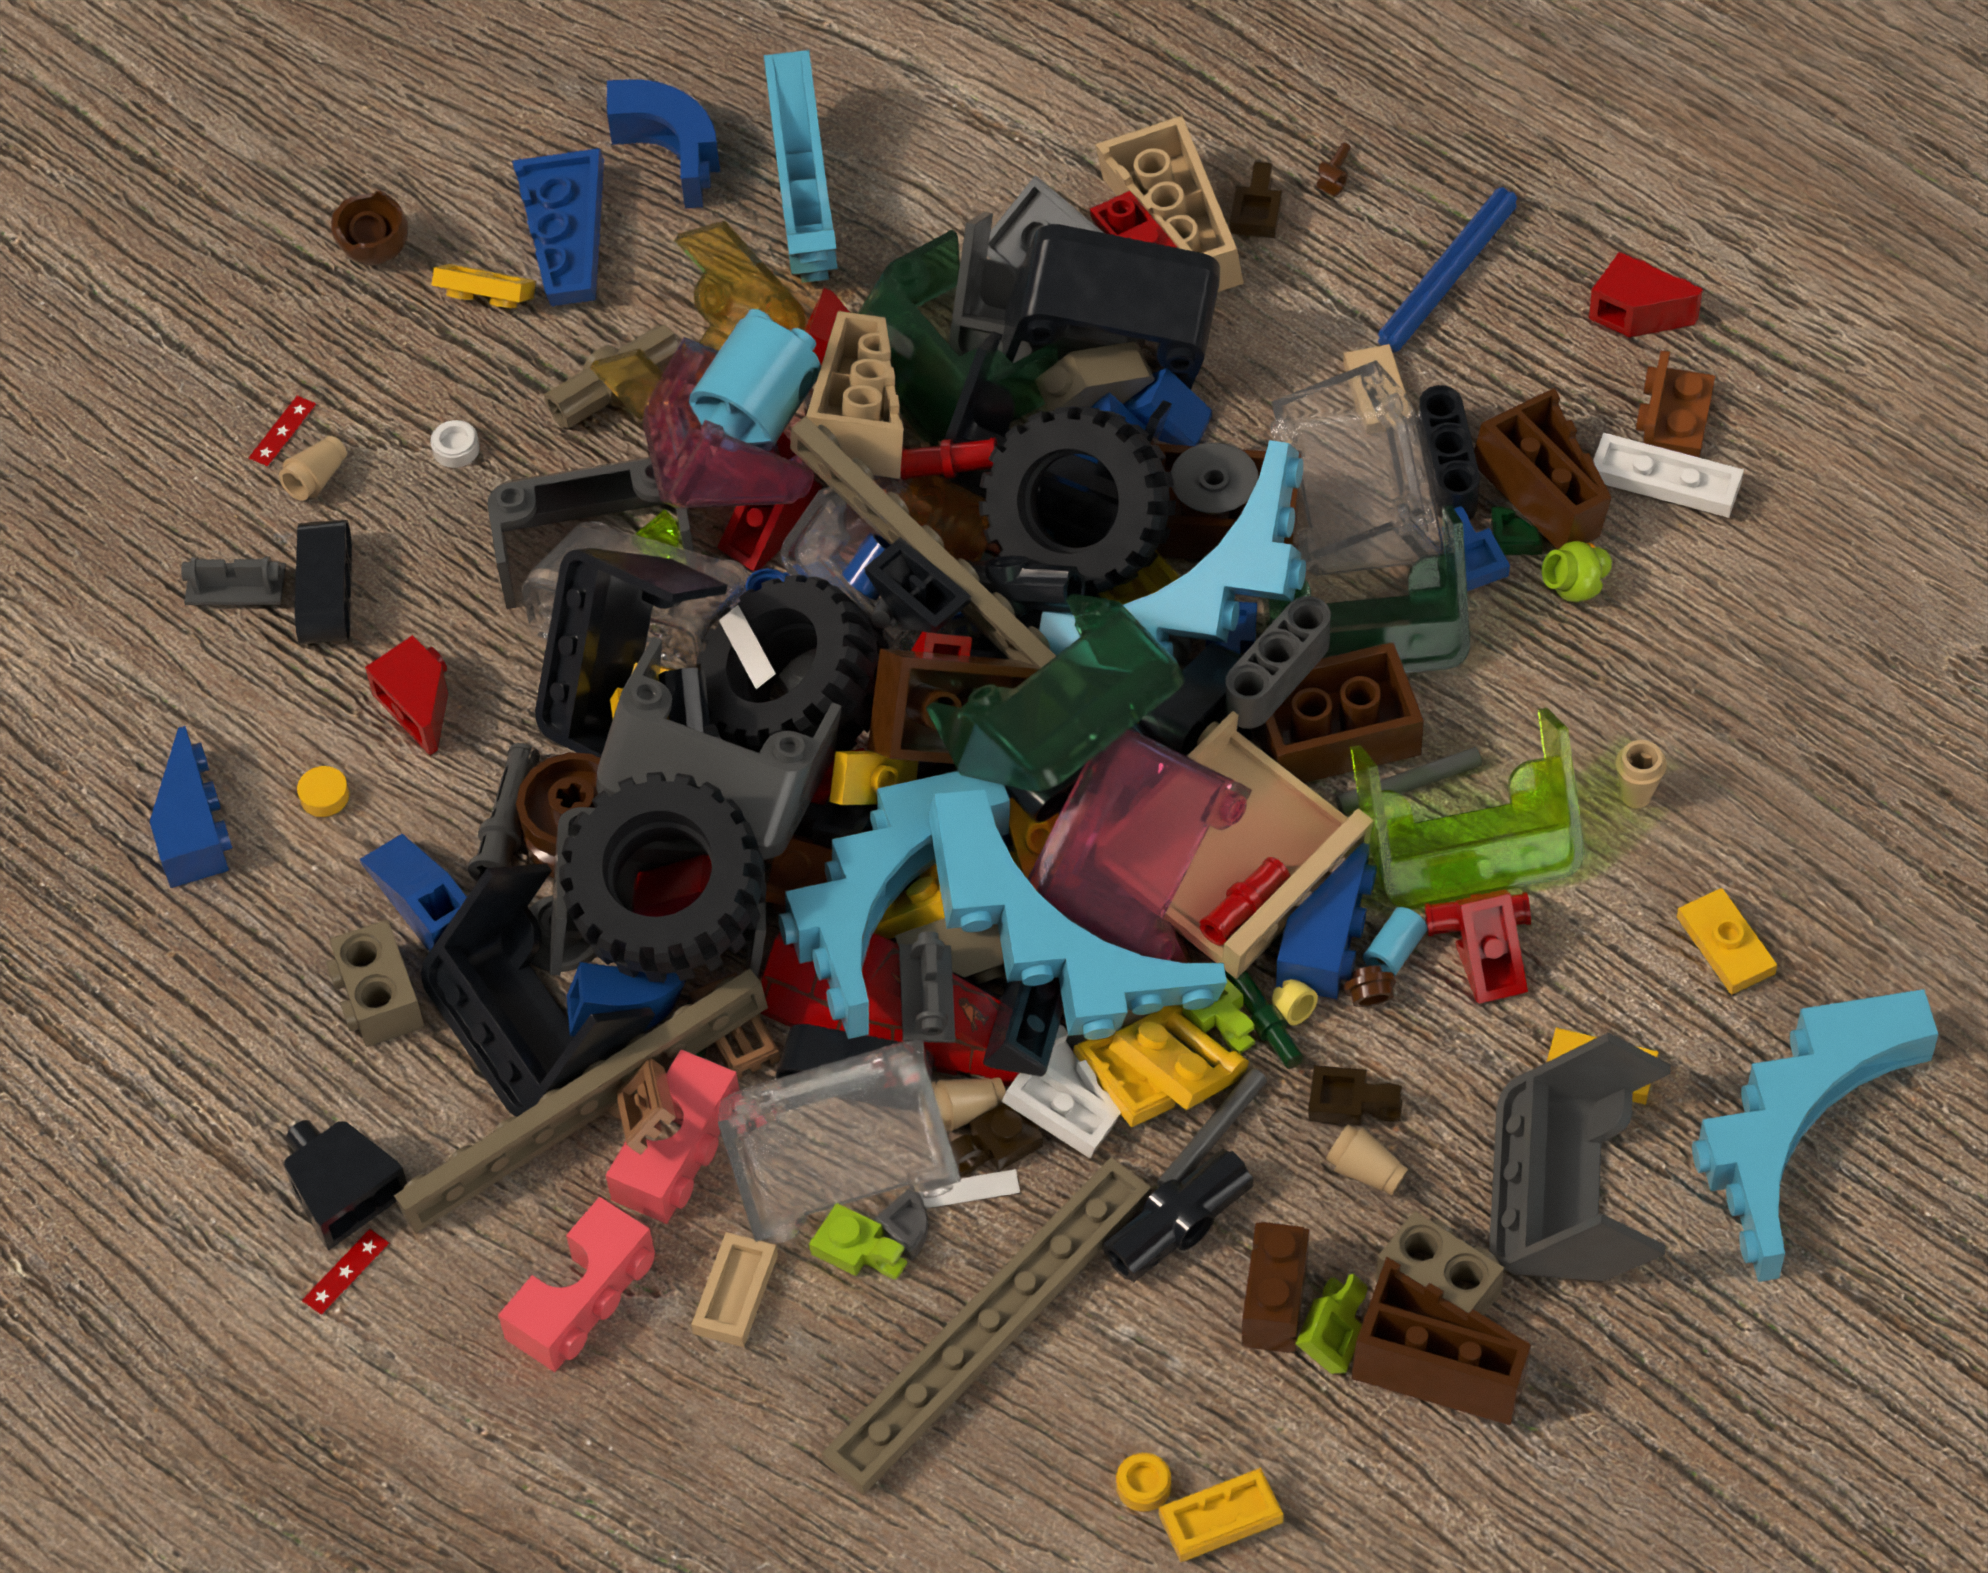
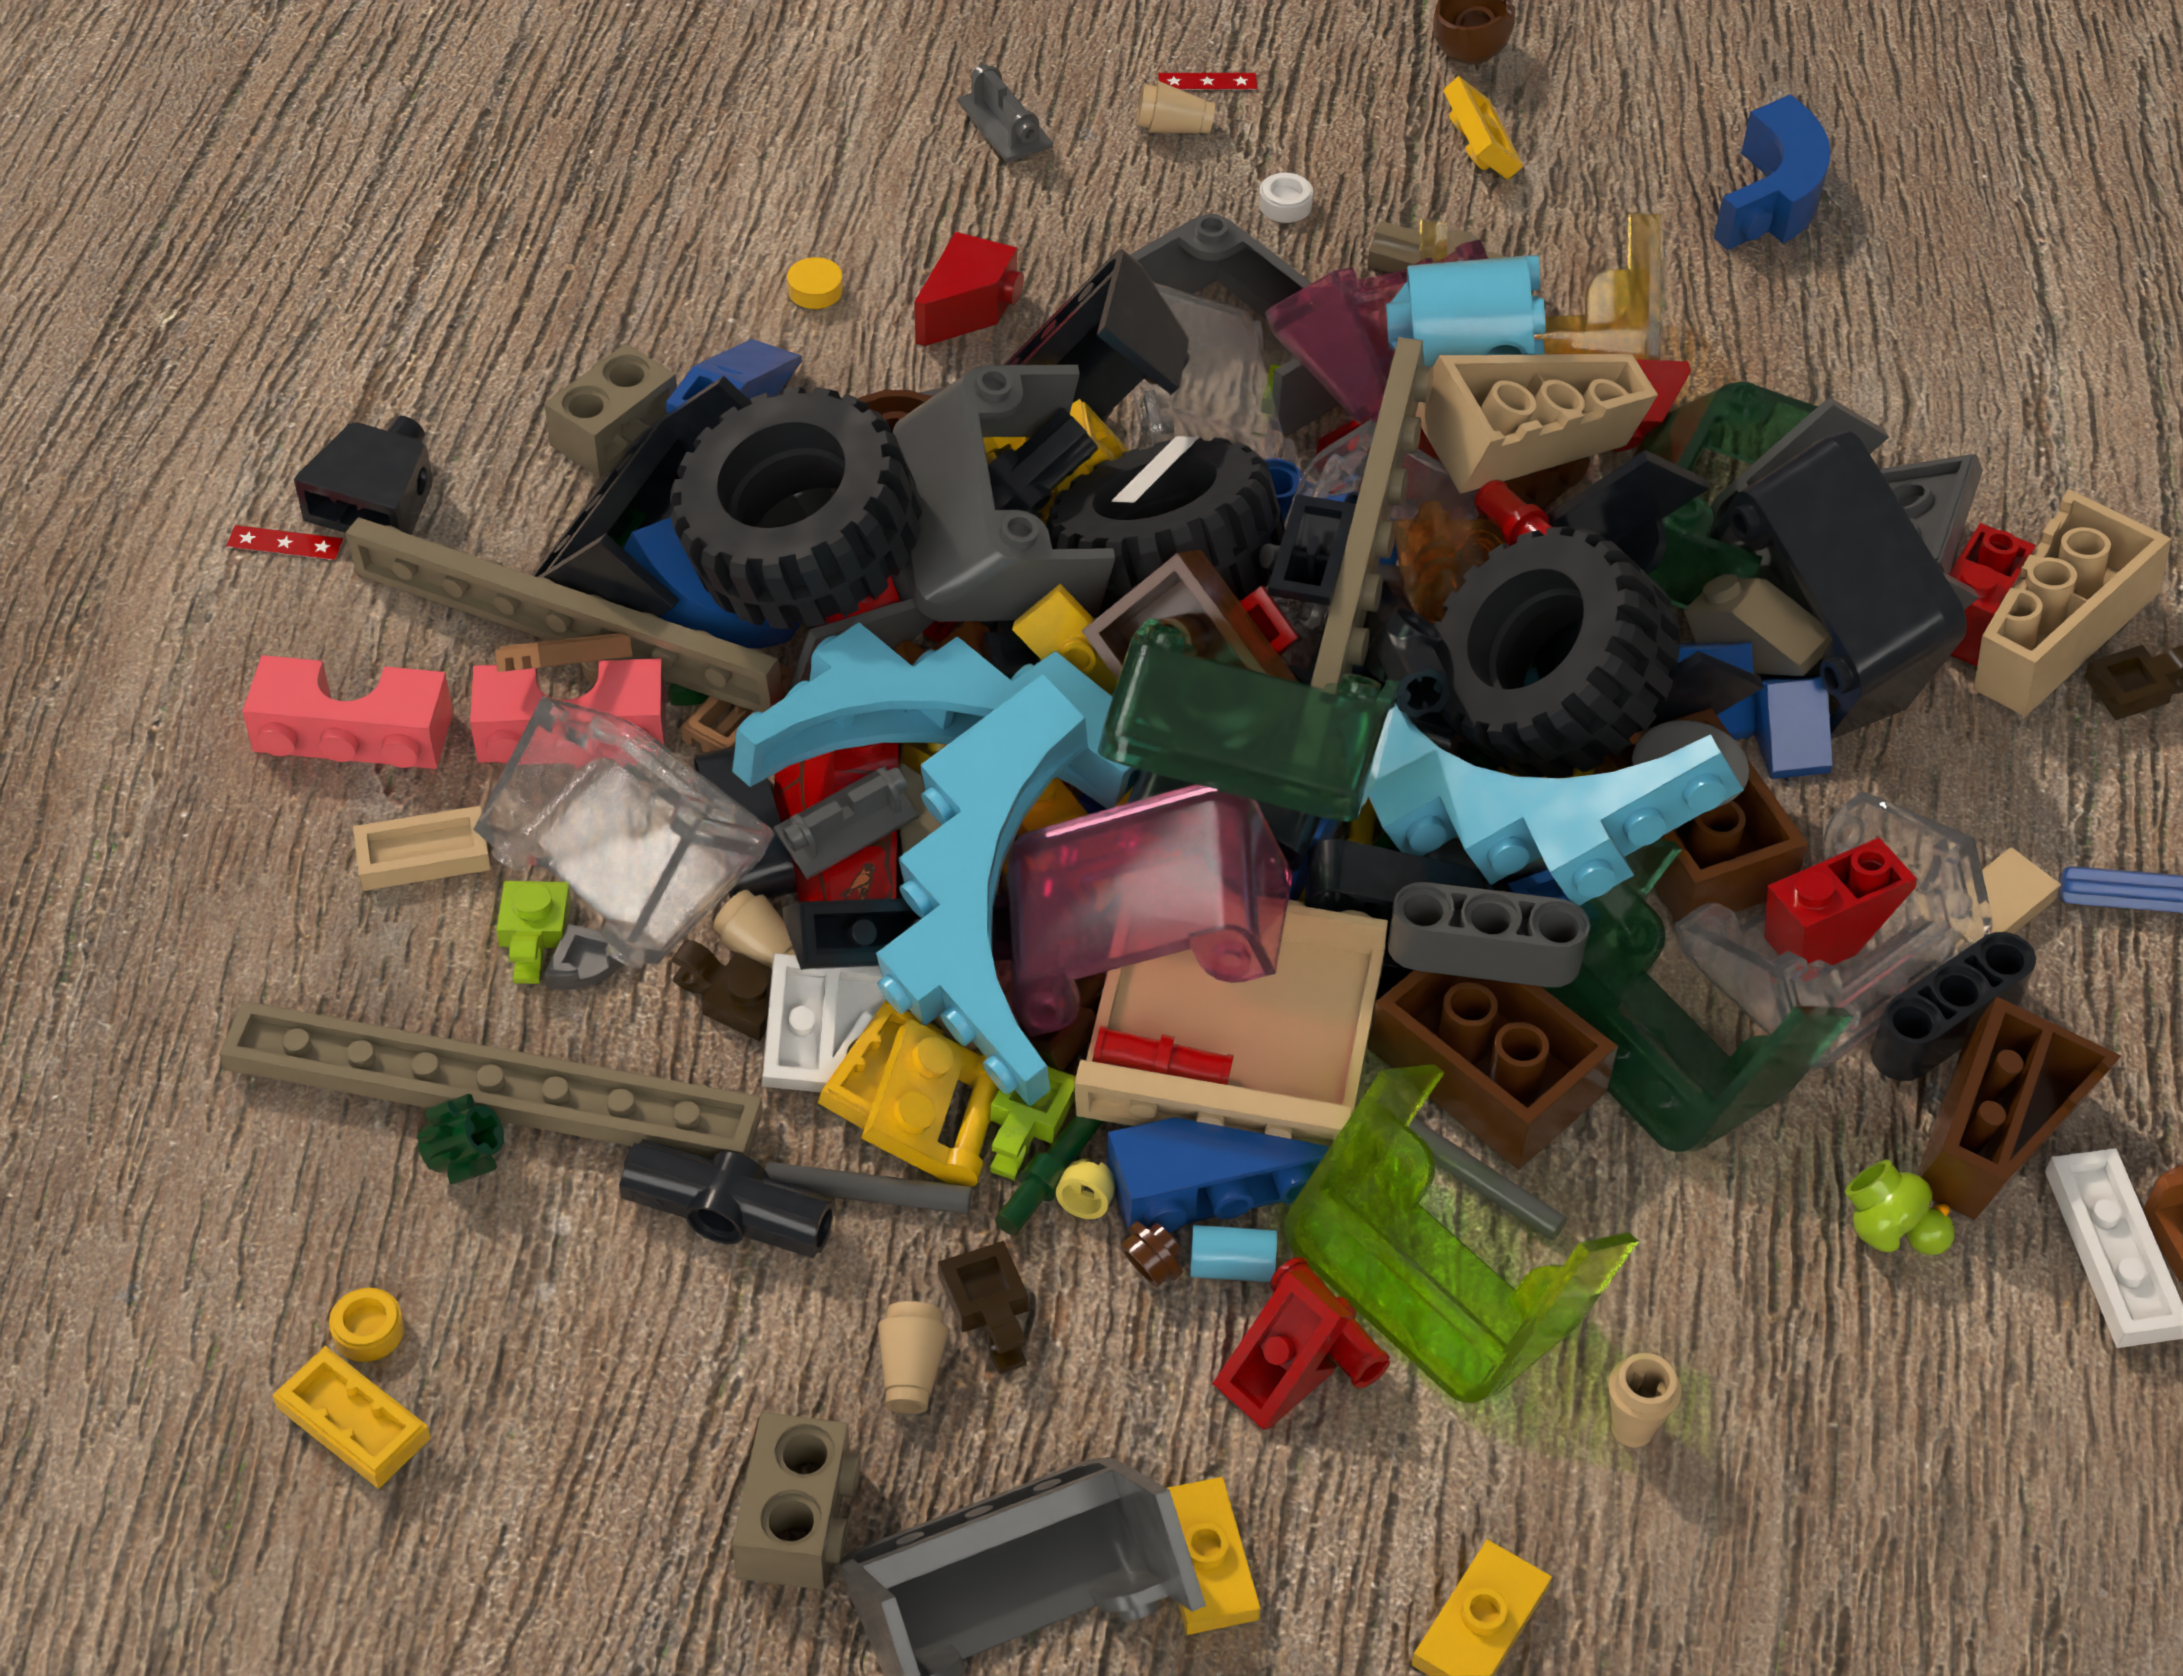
camera: 55 degrees right, 5 degrees down
(182, 817) = (715, 197): blue slope -> none
(323, 582) = (1047, 173): black beam -> none
(564, 220) = (1618, 150): blue wing -> none
(800, 165) = (1854, 259): medium azure arch -> none
(977, 1188) = (668, 1002): white sticker -> none
(1034, 1357) = (460, 1139): none -> dark green gear
(1275, 1287) = (677, 1333): reddish brown brick -> none
(1330, 1326) = (652, 1418): lime plate -> none
(1349, 468) = (1836, 903): none -> red slope
(1438, 1351) = (672, 1531): reddish brown wedge -> none
(1483, 555) = (1834, 1096): blue plate -> none
(1514, 533) = (1902, 1127): dark green tile -> none

